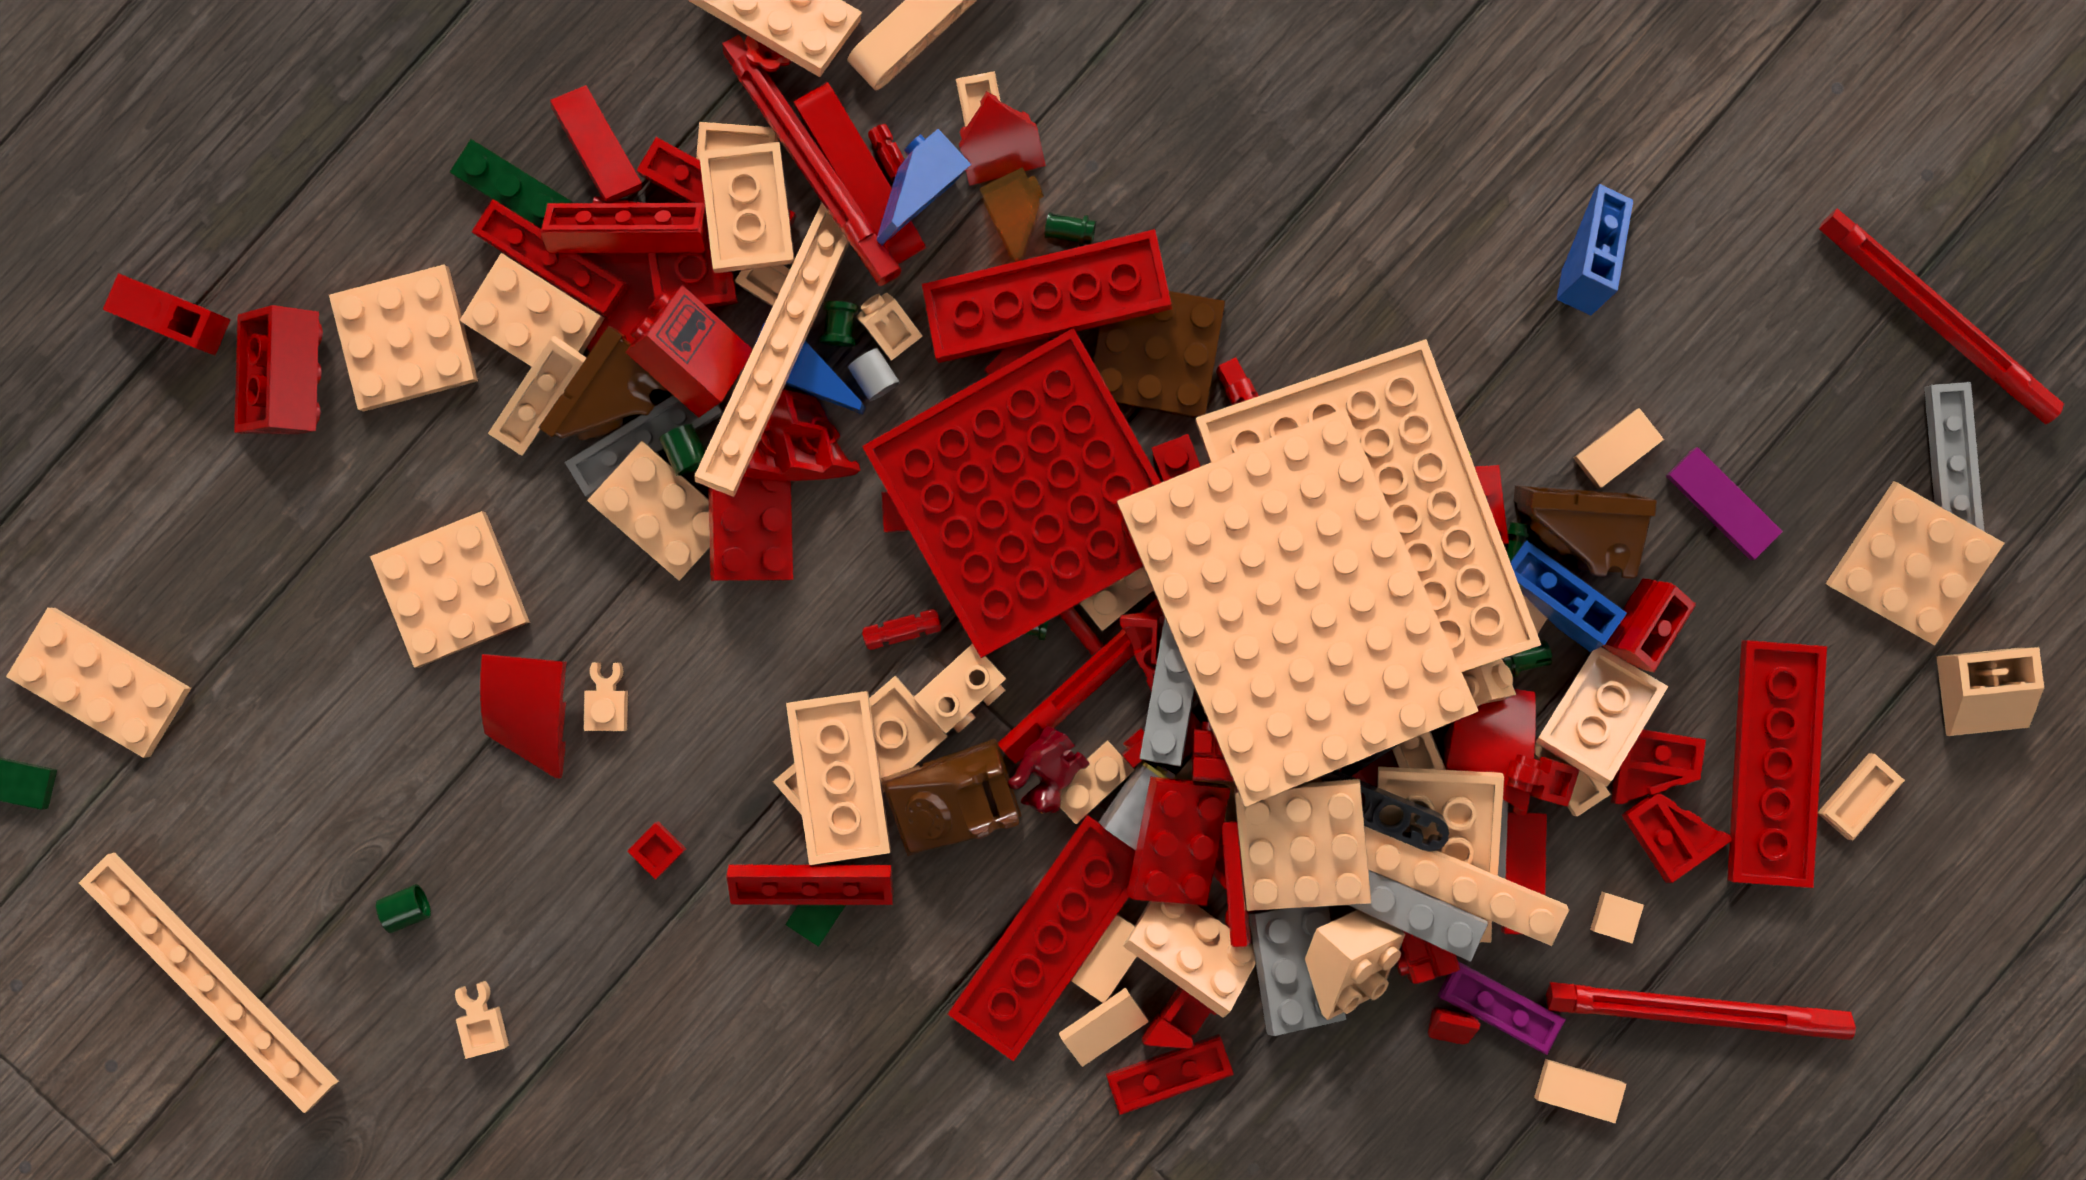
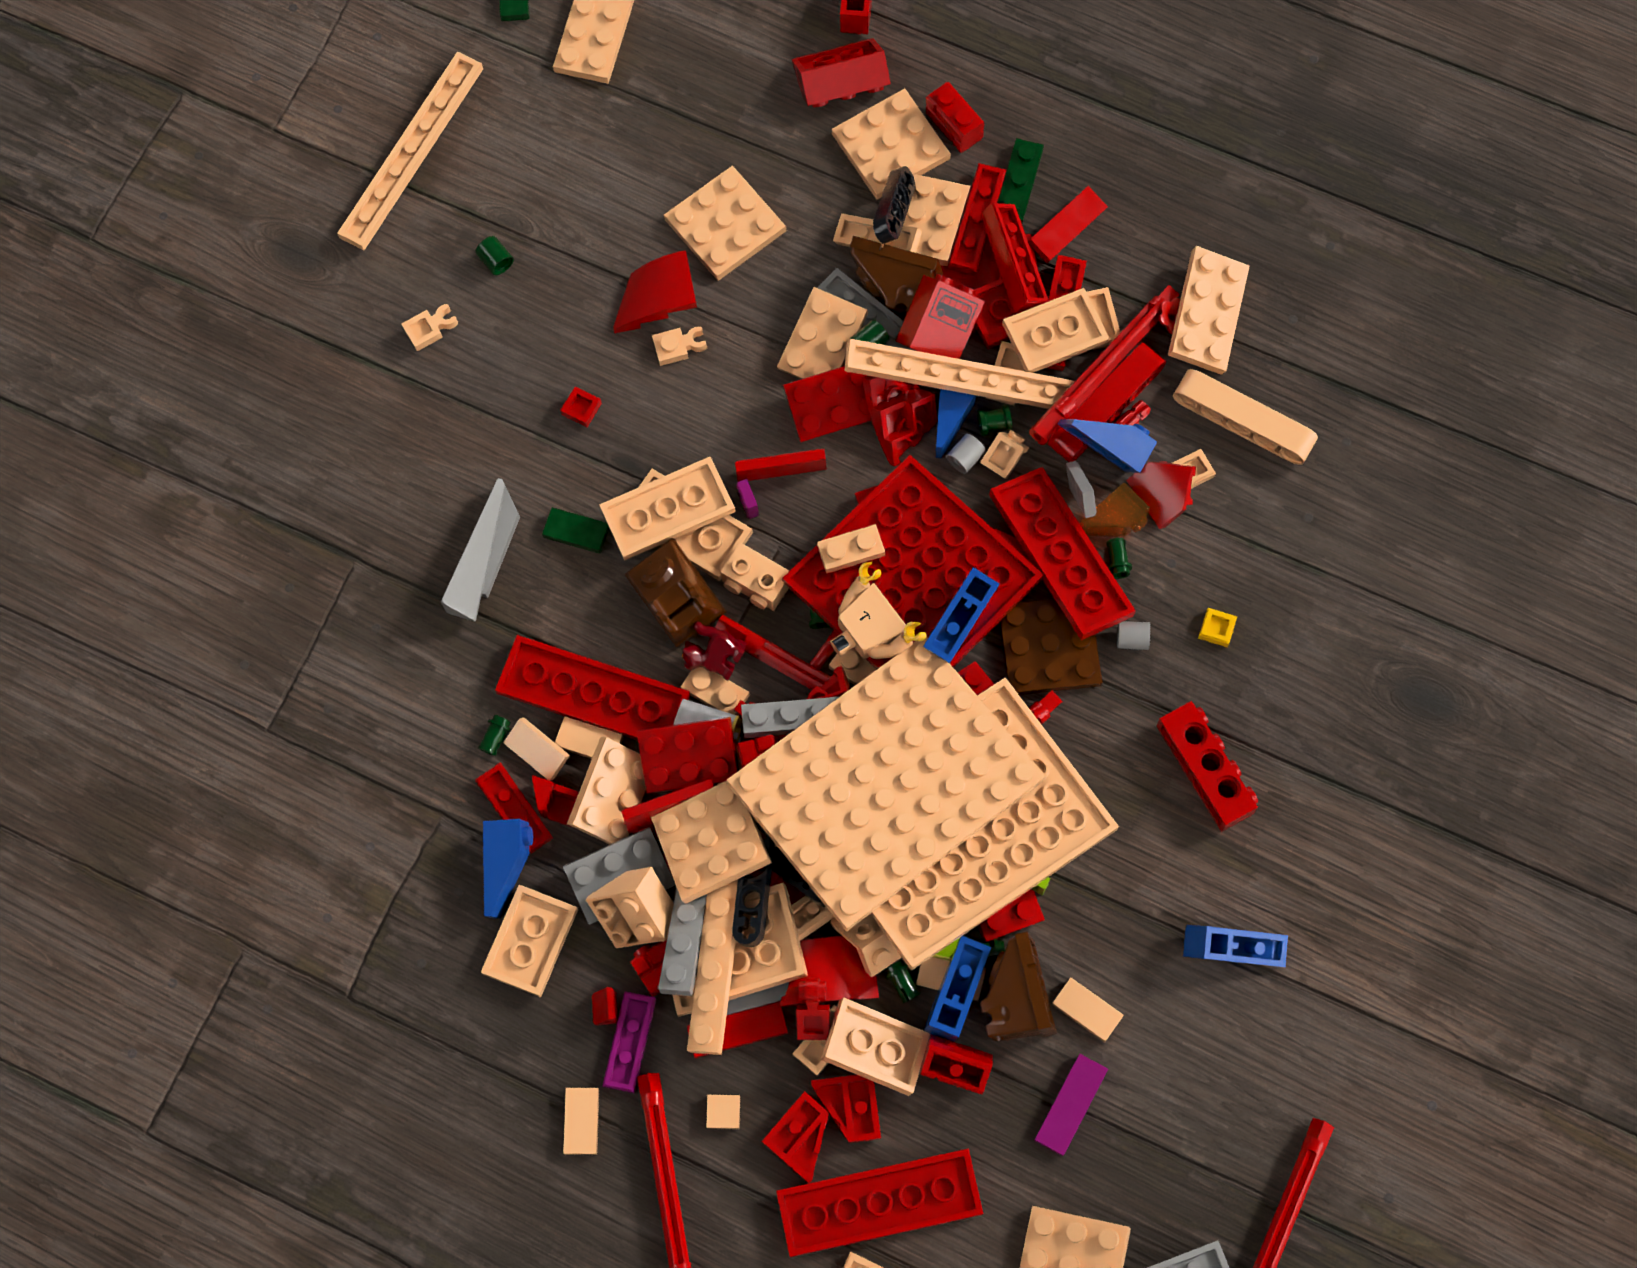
camera: 80 degrees right, 15 degrees down
(394, 242) = (954, 117): none -> red brick
(507, 360) = (894, 205): none -> black beam
(810, 884) = (585, 512): red plate -> none
(818, 614) = (781, 465): none -> red tile
(824, 1030) = (482, 555): none -> light grey wedge
(851, 670) = (747, 499): none -> magenta tile
(901, 629) = (787, 526): red axle -> none
(969, 559) = (851, 548): none -> light nougat plate
(972, 244) = (1081, 489): none -> light grey tile
(1069, 1075) = (494, 735): none -> dark green pin
(1082, 562) = (871, 622): none -> light nougat torso
(1108, 447) = (961, 615): none -> blue slope
(1177, 242) = (1133, 635): none -> light grey beam
(1193, 137) = (1217, 627): none -> yellow tile
(1230, 1103) = (504, 856): none -> blue slope
(1311, 232) = (1223, 810): none -> red brick
(1345, 1098) = (529, 940): none -> light nougat plate

